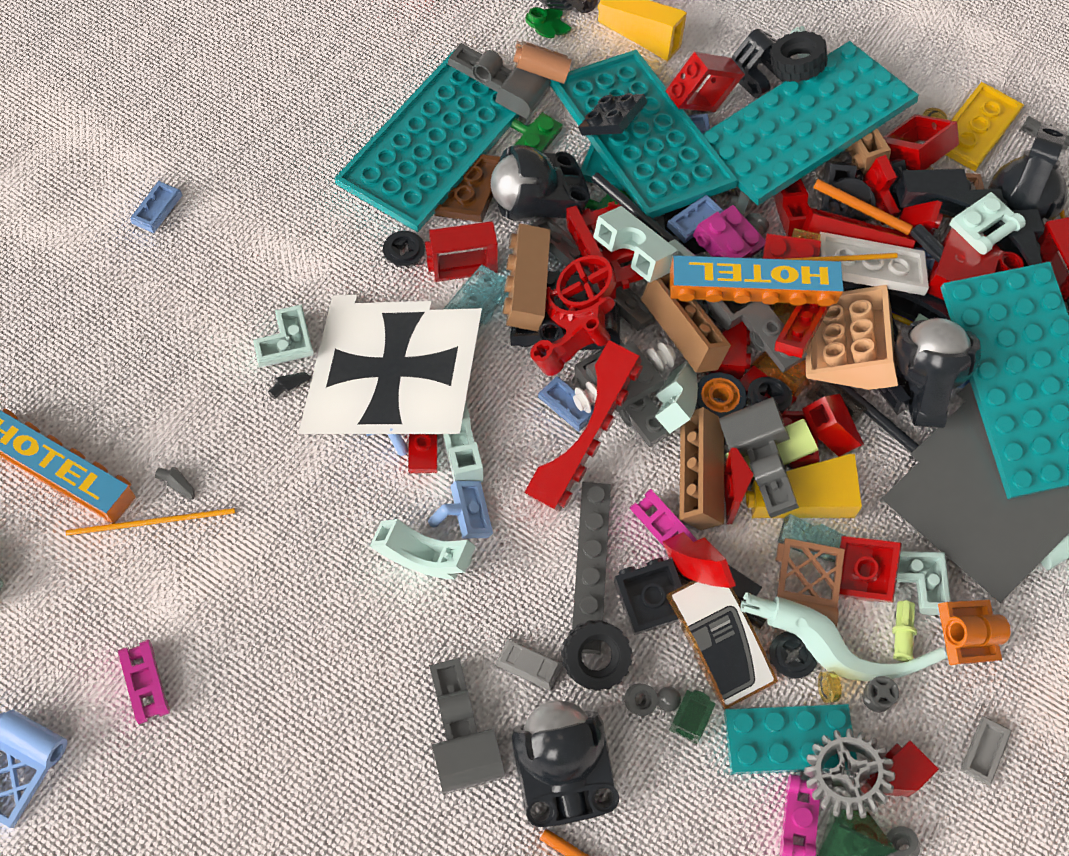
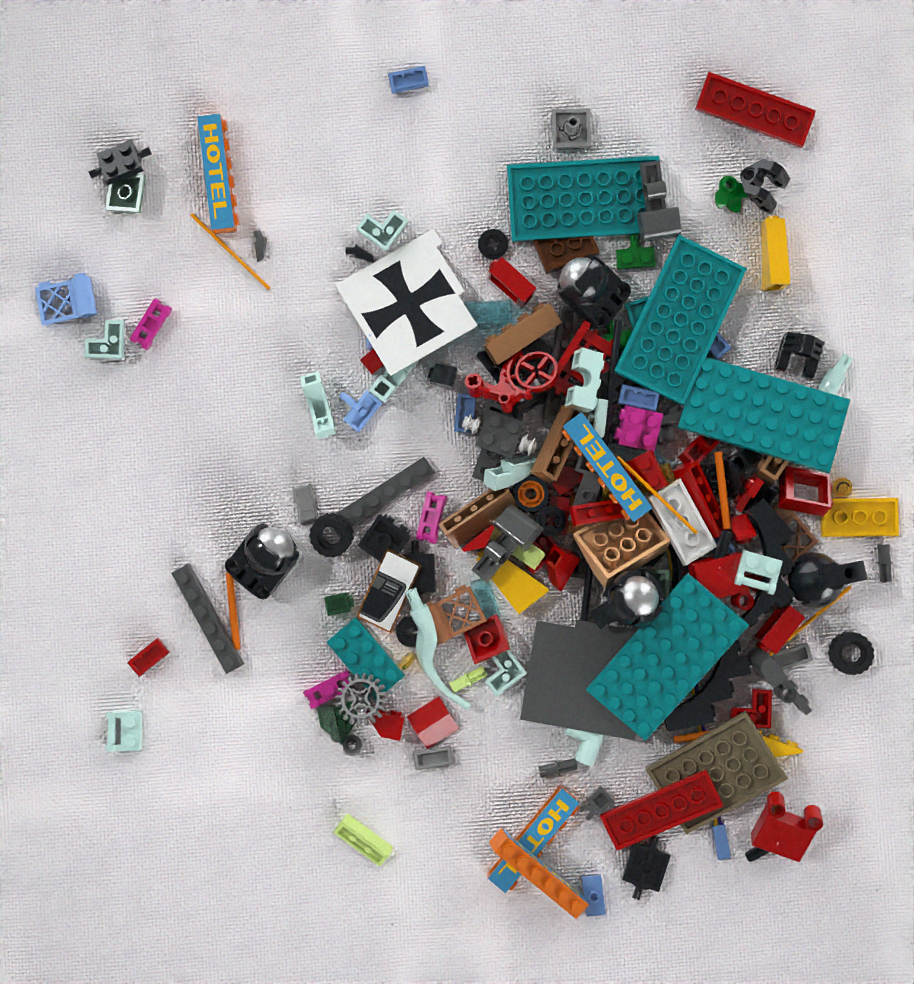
camera: 50 degrees right, 25 degrees up
(122, 754) = (111, 346): none -> light aqua brick
(354, 96) = (571, 121): none -> light grey plate
(467, 755) = (237, 508): dark grey plate -> none
(507, 389) = (443, 376): none -> black slope
(542, 61) = (681, 224): nougat piece -> none
(555, 479) = (485, 431): red arch -> none
(612, 114) = (669, 298): black plate -> none
(667, 699) = (339, 584): dark grey plate -> none
(699, 561) = (415, 551): red slope -> none
(723, 79) = (745, 332): red window -> none
(802, 68) = (811, 363): black tyre -> none
(885, 689) = (422, 692): dark grey wheel -> none
(935, 716) = (433, 722): none -> red slope
(973, 631) = (490, 714): orange plate -> none

